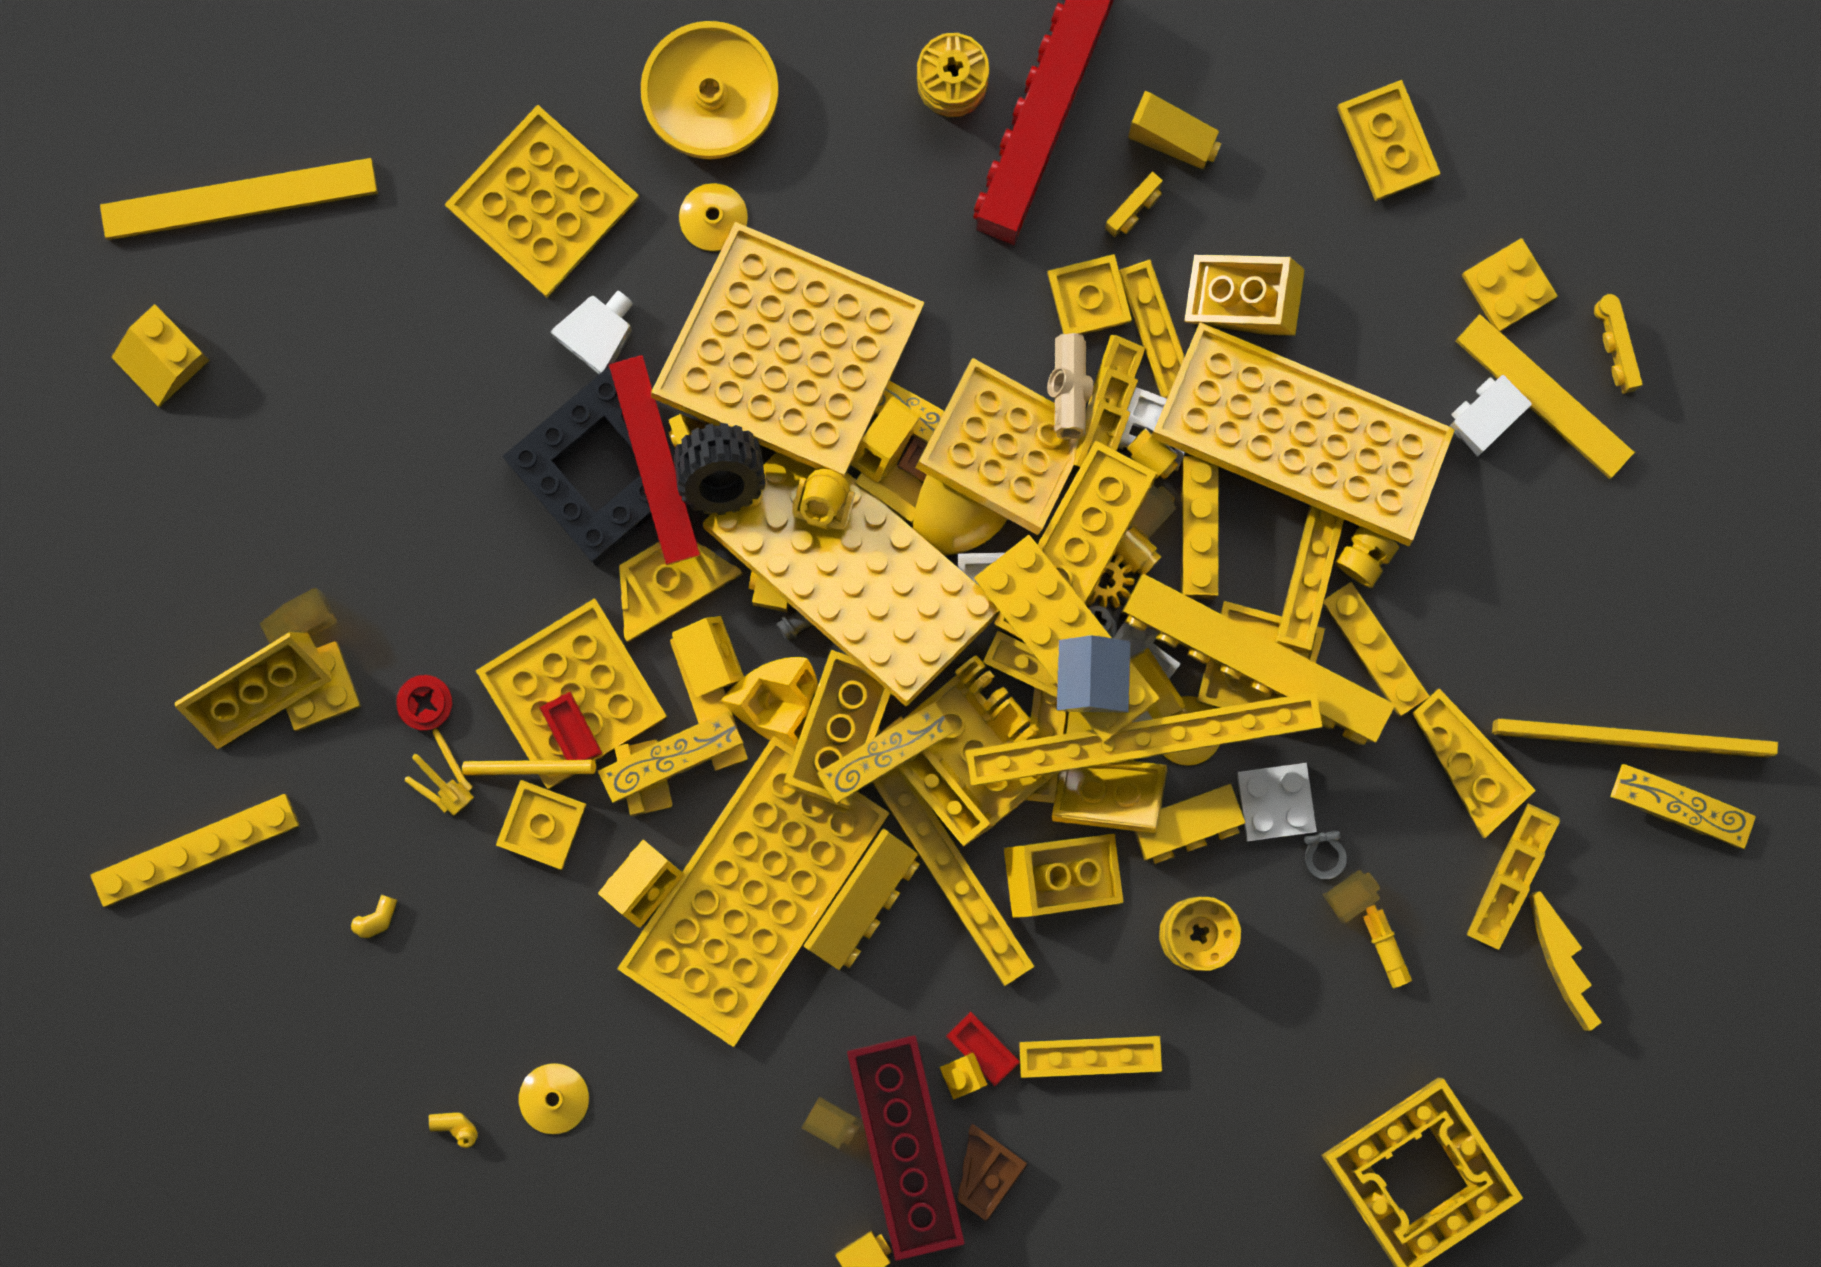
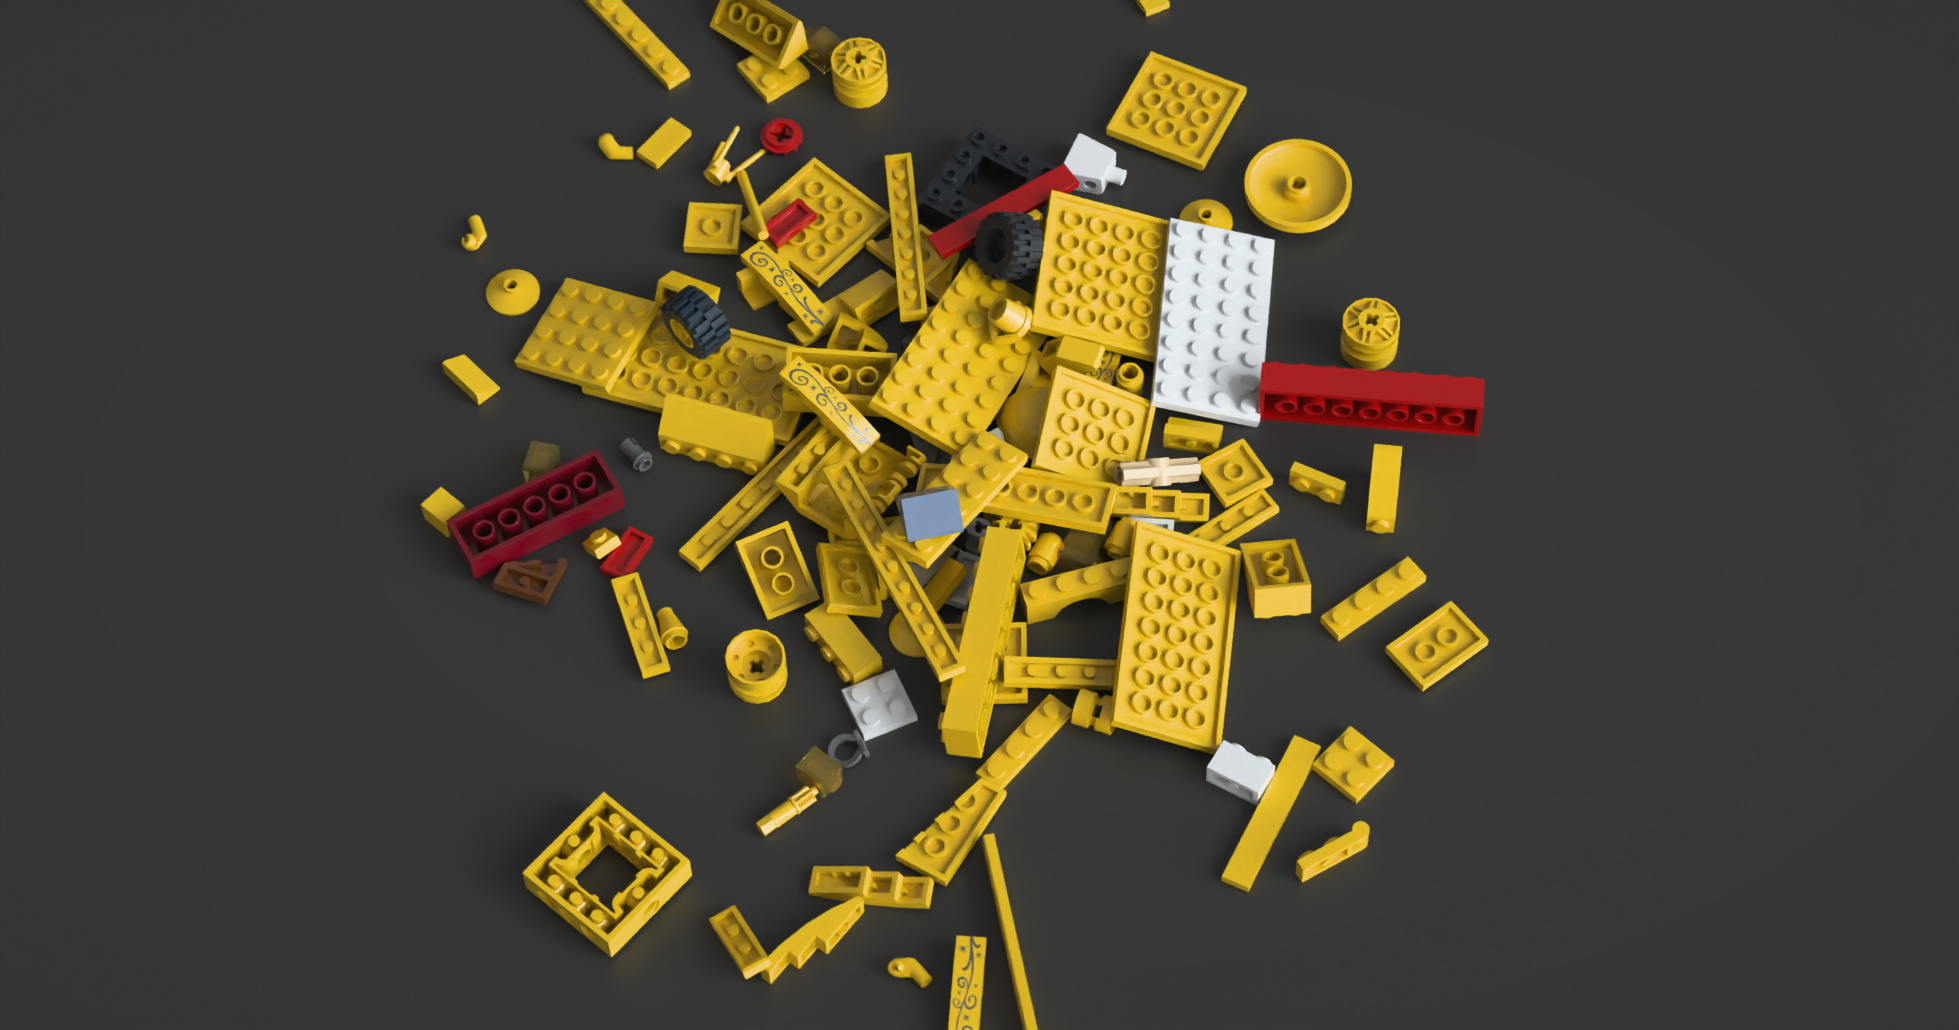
camera: 75 degrees right, 25 degrees down
(375, 596) = (859, 72): none -> yellow wheel
(386, 853) = (663, 143): none -> yellow tile
(643, 590) = (906, 237): none -> yellow plate
(660, 1022) = (587, 335): none -> yellow plate
(670, 1180) = (470, 378): none -> yellow slope
(707, 884) = (696, 322): none -> black wheel
(847, 1003) = (640, 459): none -> dark grey pin
(873, 254) = (1212, 322): none -> white plate
(931, 370) = (1130, 378): none -> yellow brick
(1017, 327) = (1192, 435): none -> yellow panel
(1105, 1021) = (672, 631): none -> yellow cone
(1301, 191) = (1373, 598): none -> yellow plate
(1549, 1044) = (740, 942): none -> yellow tile
(1624, 861) = (909, 968): none -> yellow arm

